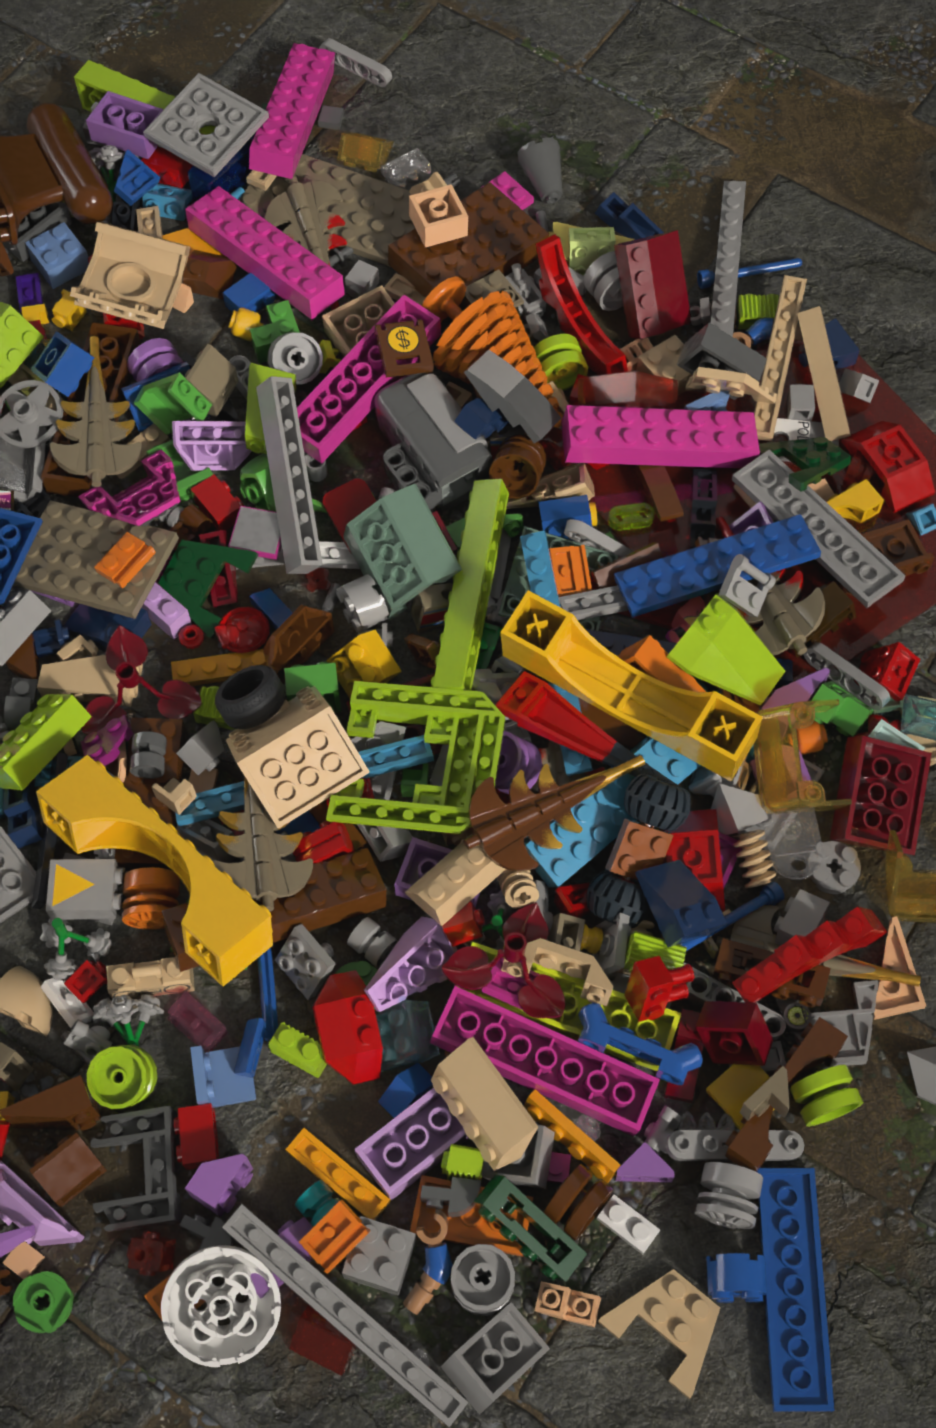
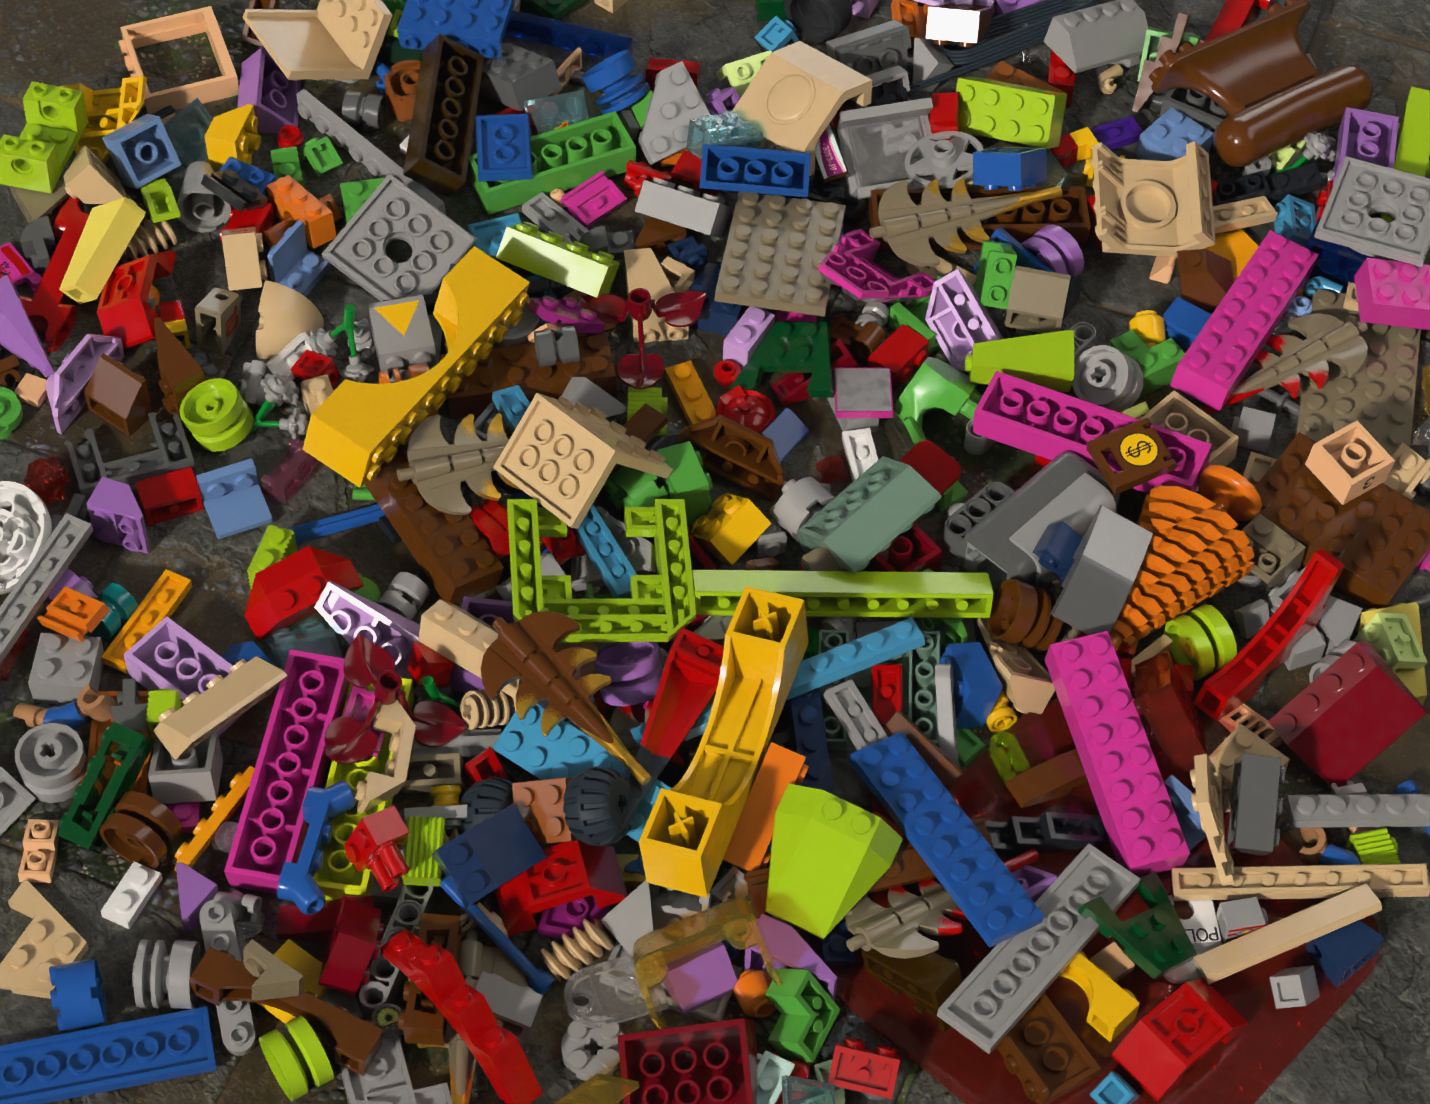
camera: 75 degrees right, 10 degrees down
(124, 559) = (775, 270): orange plate -> none
(134, 179) = (1295, 177): blue wing -> none
(175, 794) = (518, 382): tan panel -> none
(250, 697) = (638, 410): black tyre -> none
(250, 1047) = (262, 517): blue slope -> none
(289, 475) = (928, 389): light grey brick -> none
(306, 961) = (368, 542): light grey plate -> none
(570, 570) = (893, 688): orange plate -> none
(741, 592) = (908, 866): light grey plate -> none
(868, 692) = (845, 1018): light grey beam -> none

